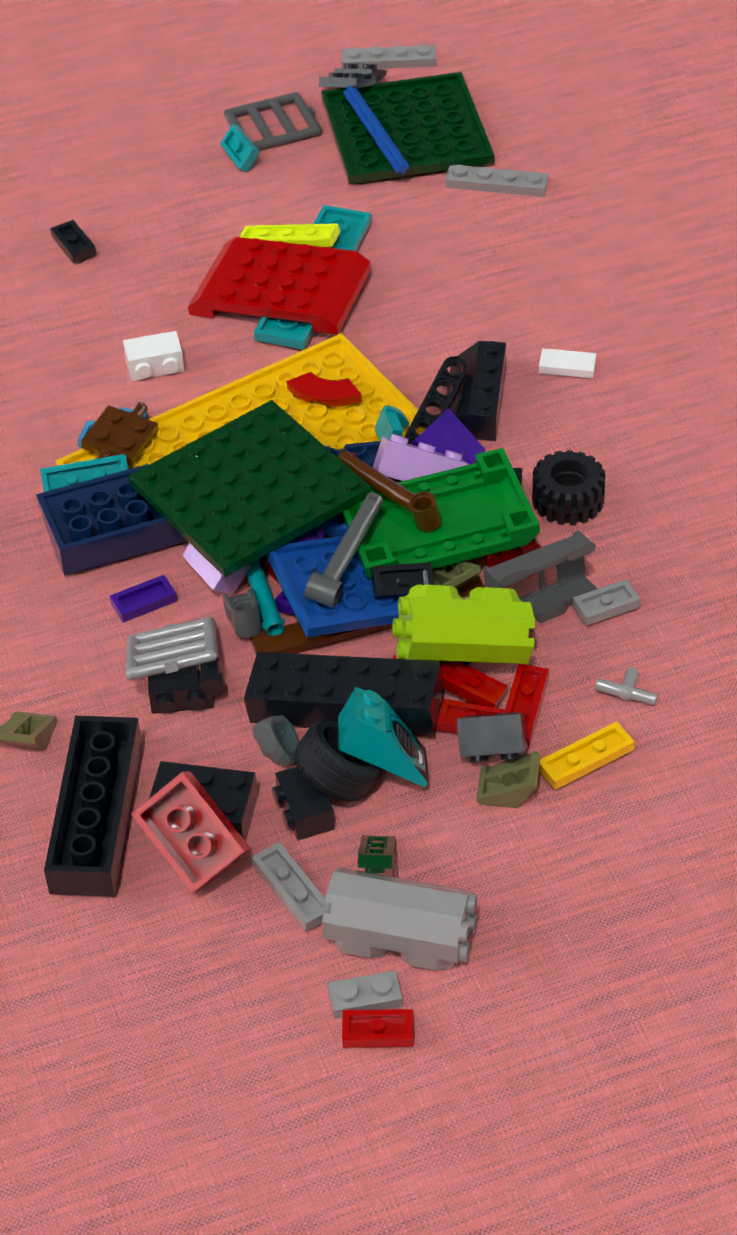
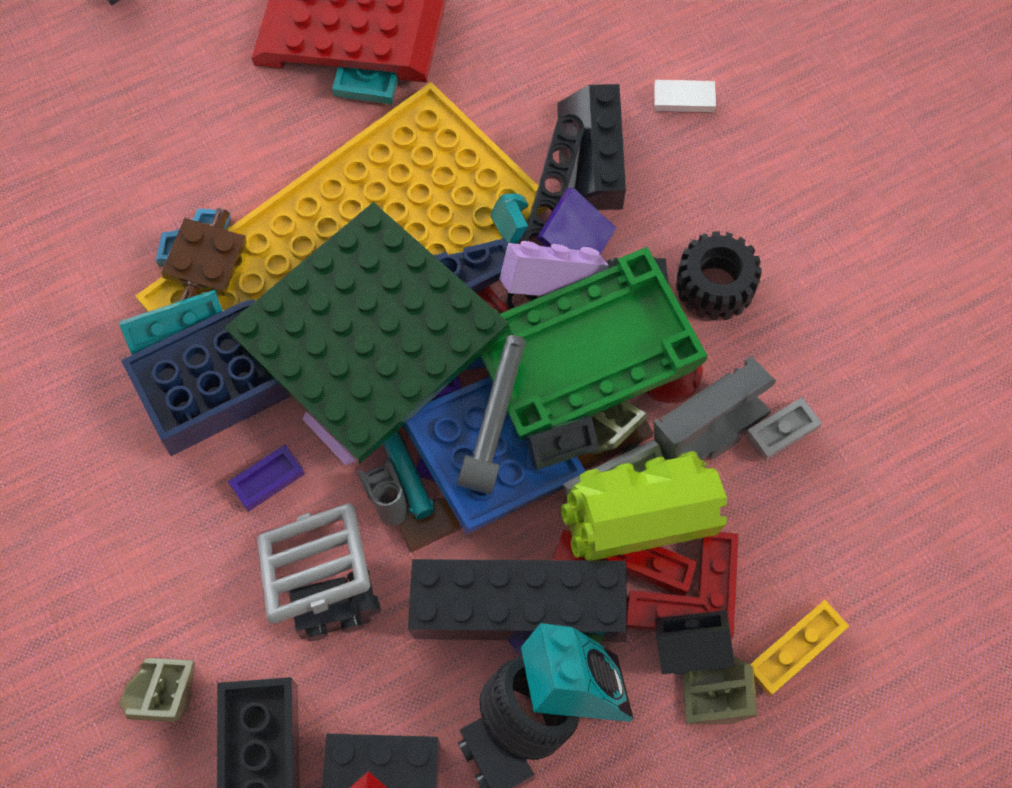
camera: 10 degrees left, 20 degrees up
(153, 356) = (224, 133): white brick -> none
(276, 739) = (453, 671): dark grey rock -> none
(334, 392) = (426, 169): red tile -> none
(421, 505) = (530, 317): reddish brown piece -> none
(626, 690) = (824, 548): light grey piece -> none

